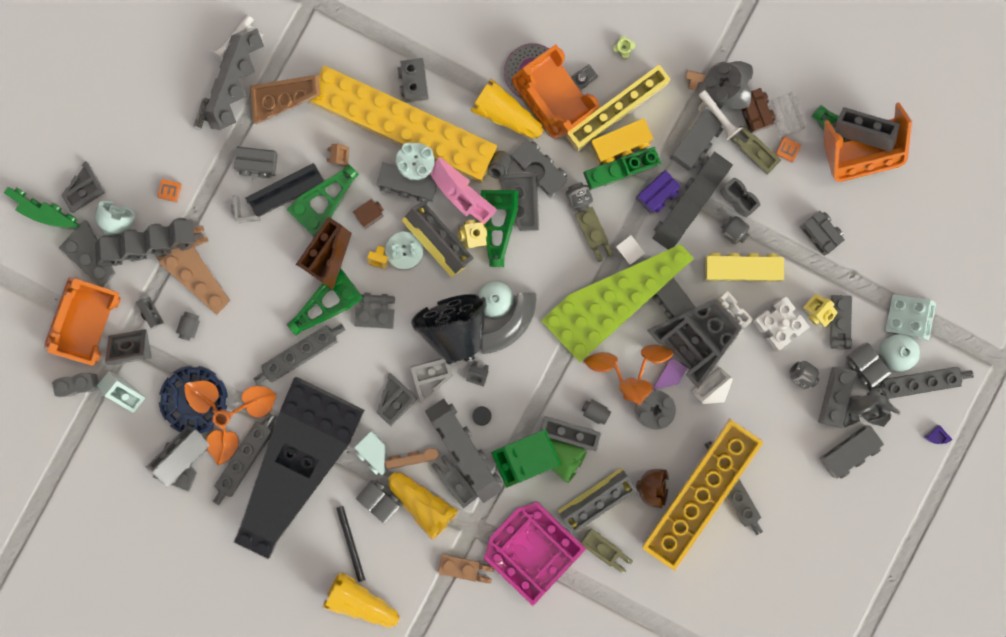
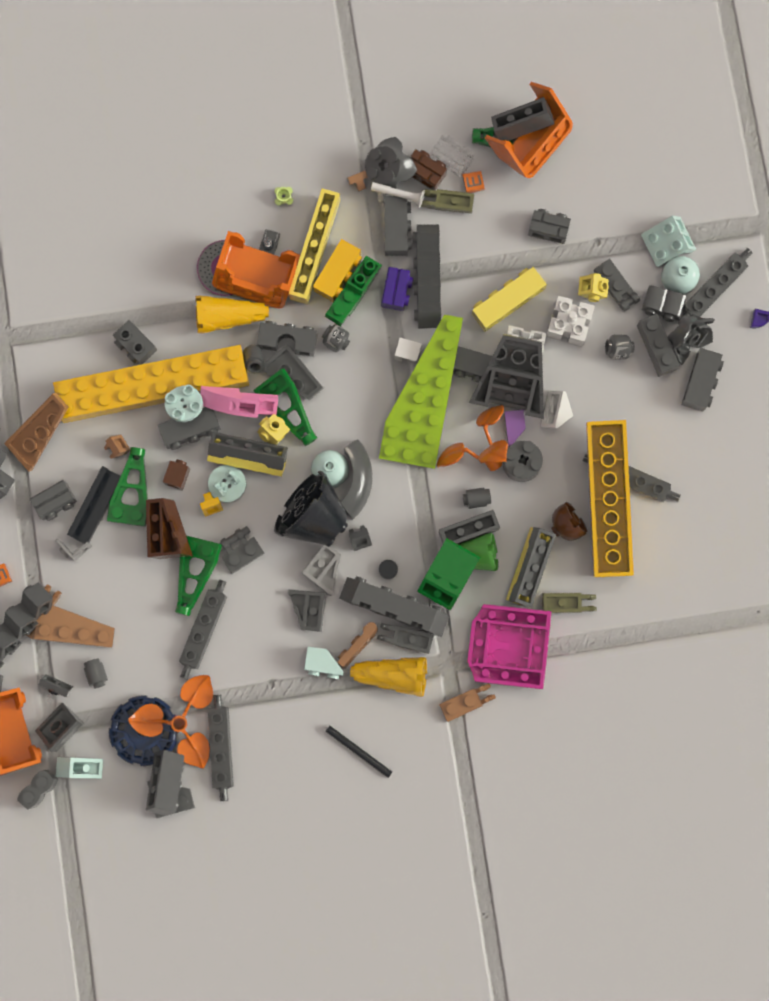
camera: 30 degrees left, 5 degrees down
(314, 429) = (256, 679): black wing -> none
(357, 602) = (397, 792): yellow cone -> none
(378, 501) = (356, 699): dark grey brick -> none
(593, 232) = (368, 358): olive hinge -> none
(735, 230) = (479, 274): dark grey head -> none
(737, 194) = (459, 244): dark grey brick -> none

